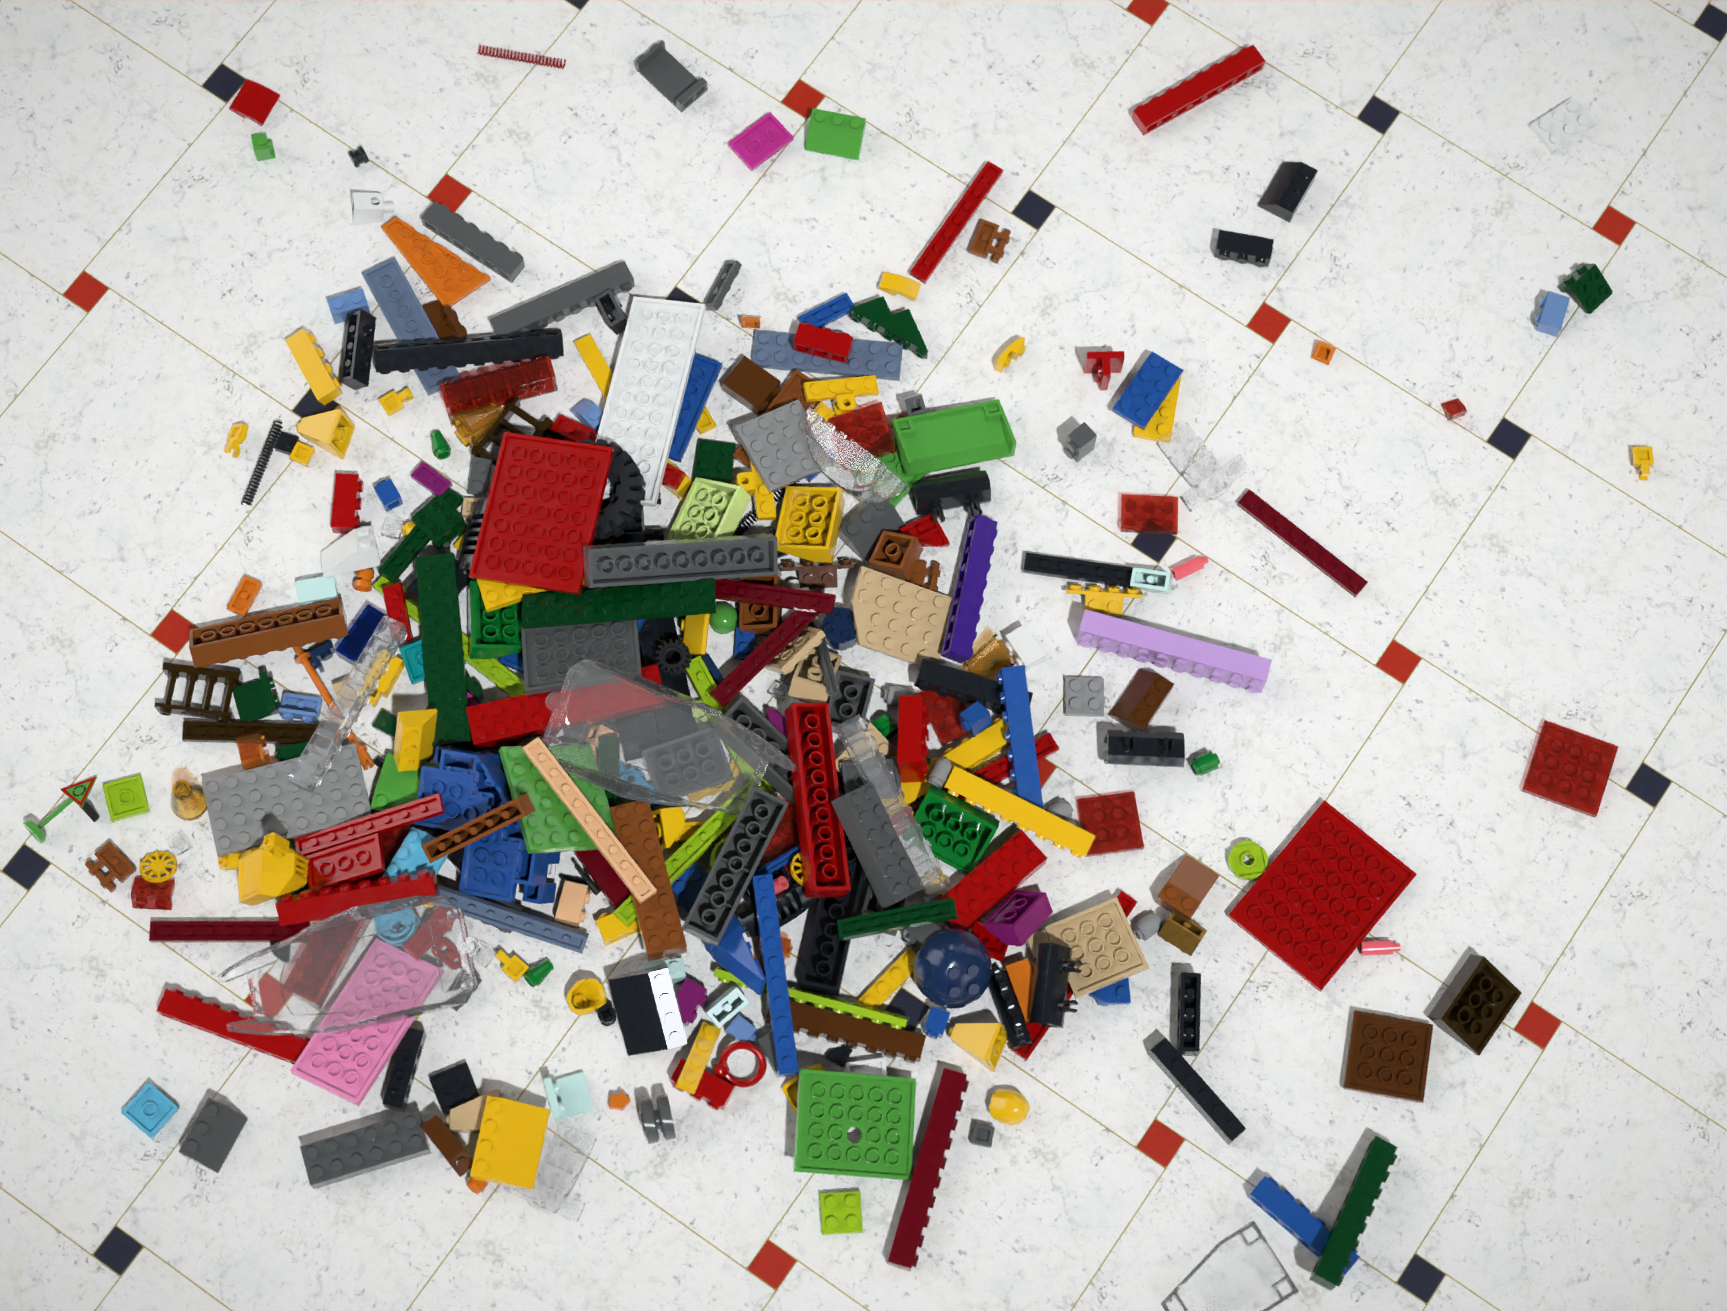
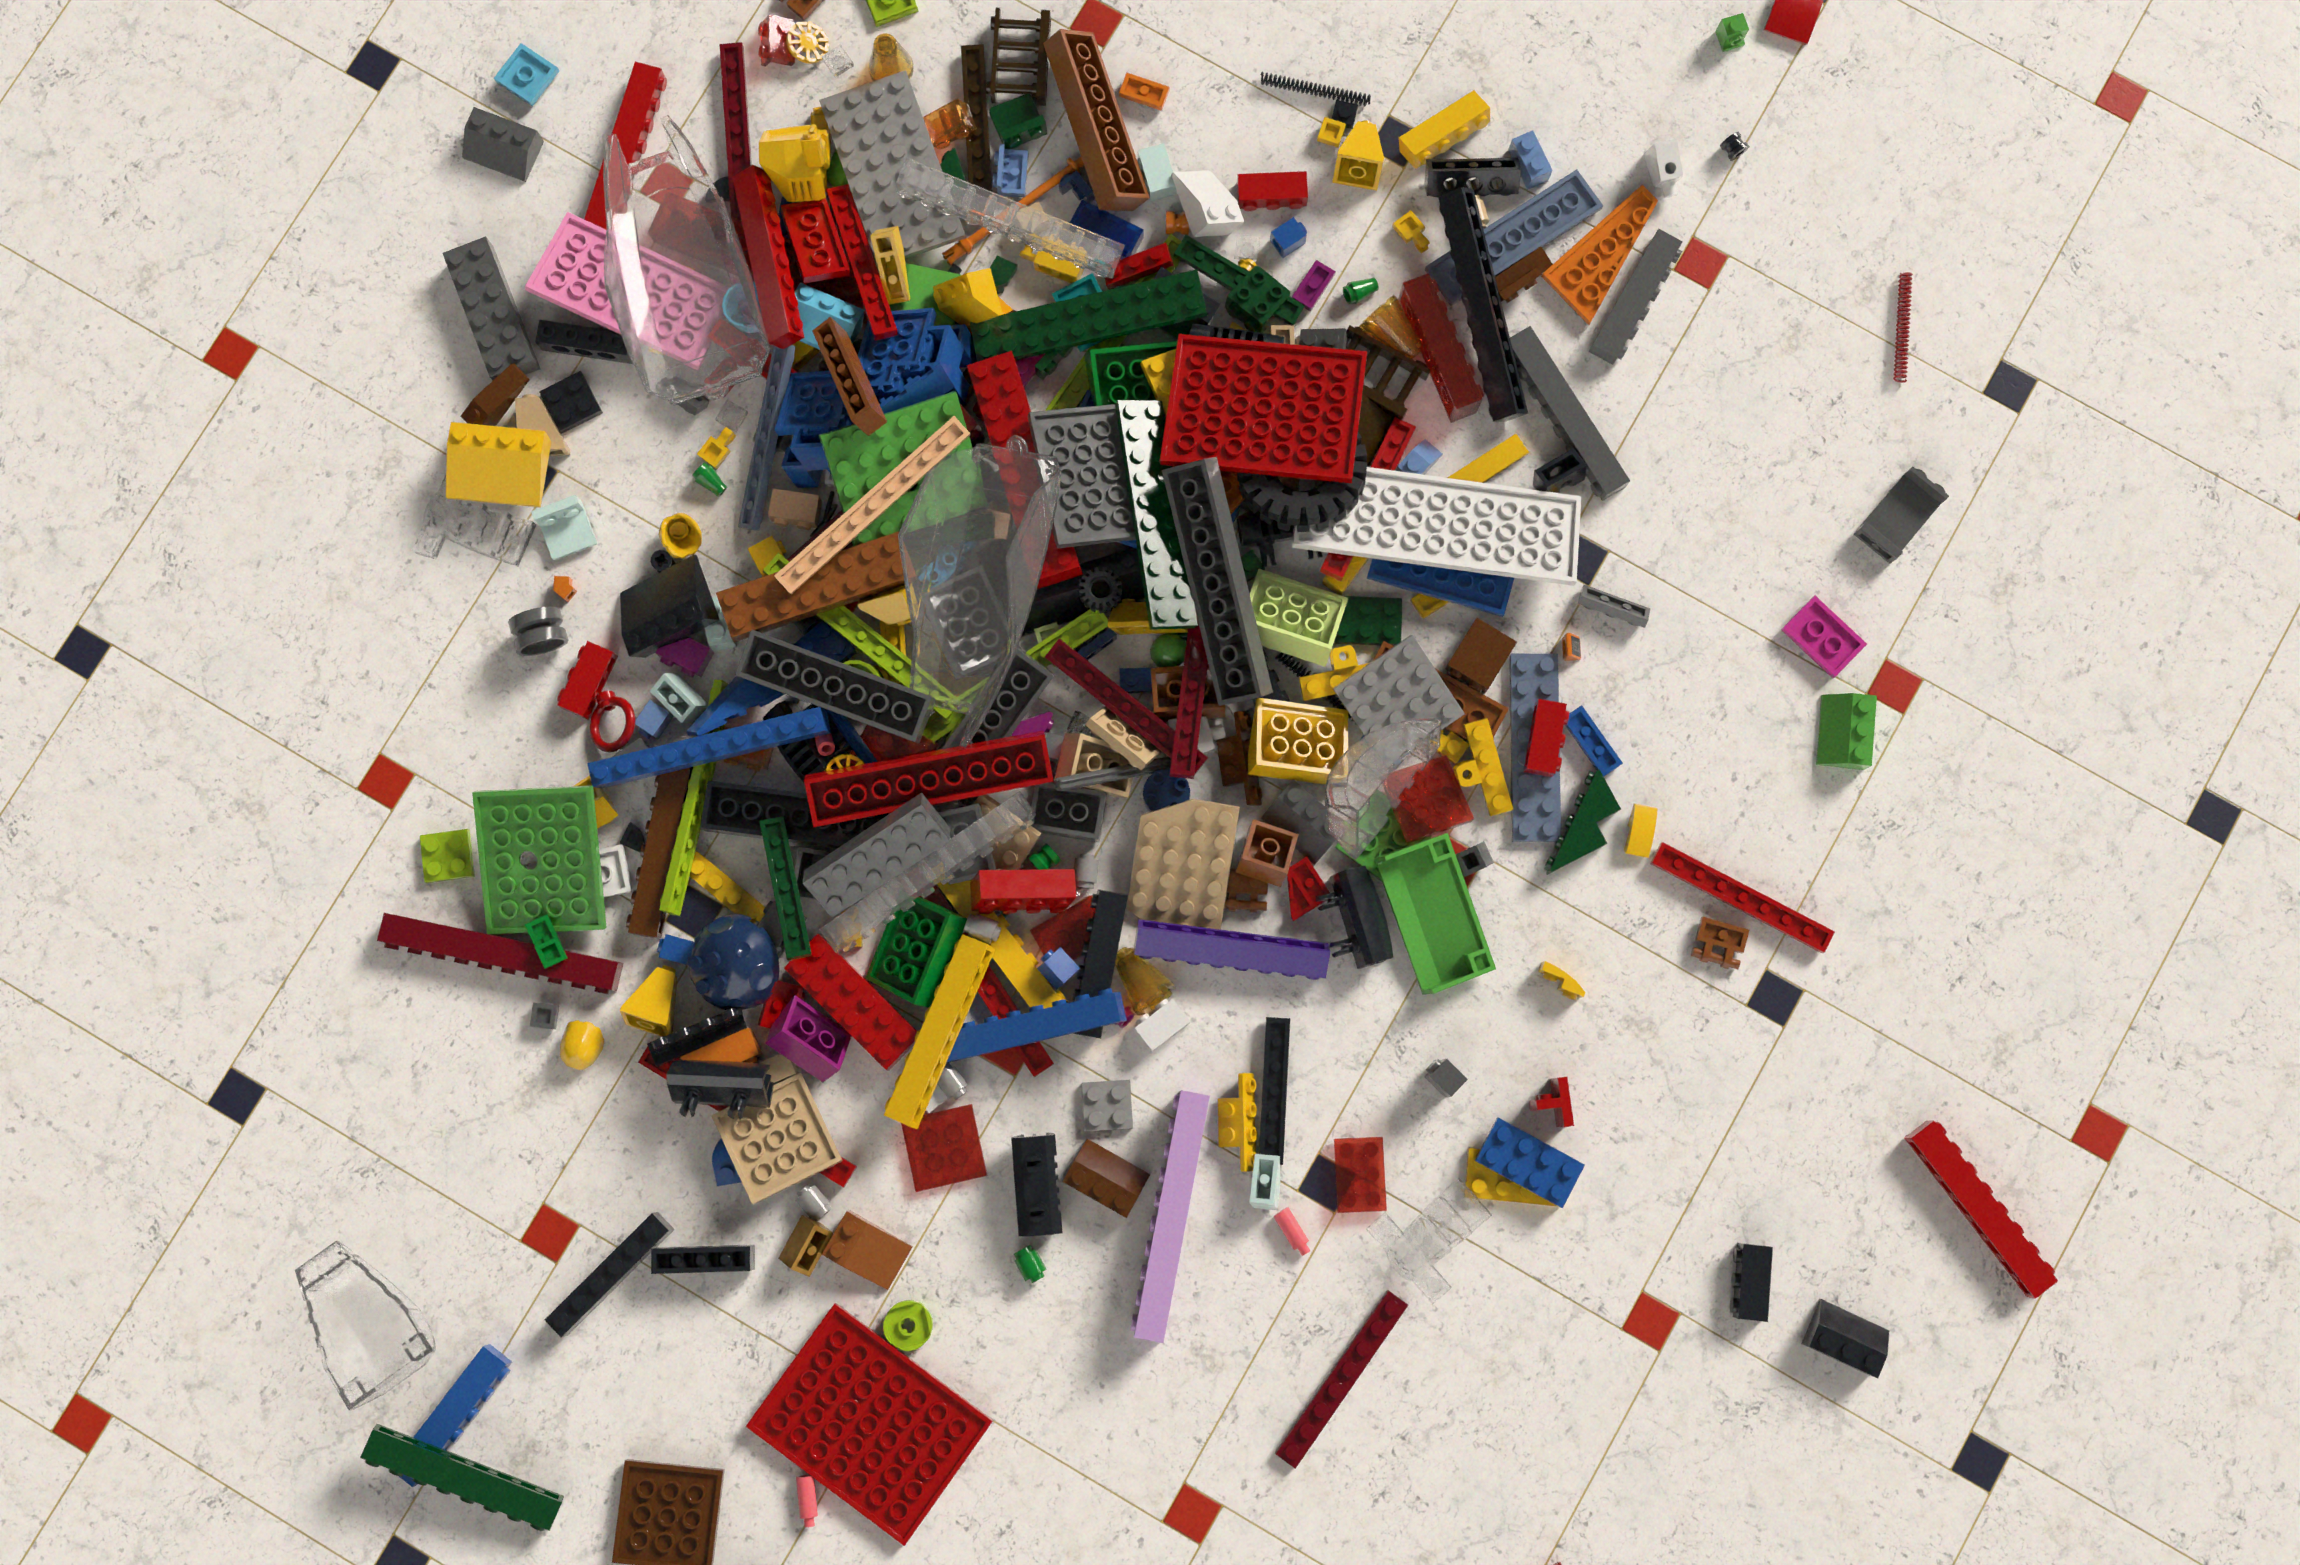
camera: 90 degrees right, 10 degrees up
(236, 436) = (1345, 54): yellow plate -> none
(374, 799) = (891, 264): none -> yellow slope
(698, 1058) = (611, 670): yellow plate -> none
(923, 1124) = (546, 941): none -> green slope
(1324, 352) = (1616, 1398): orange slope -> none

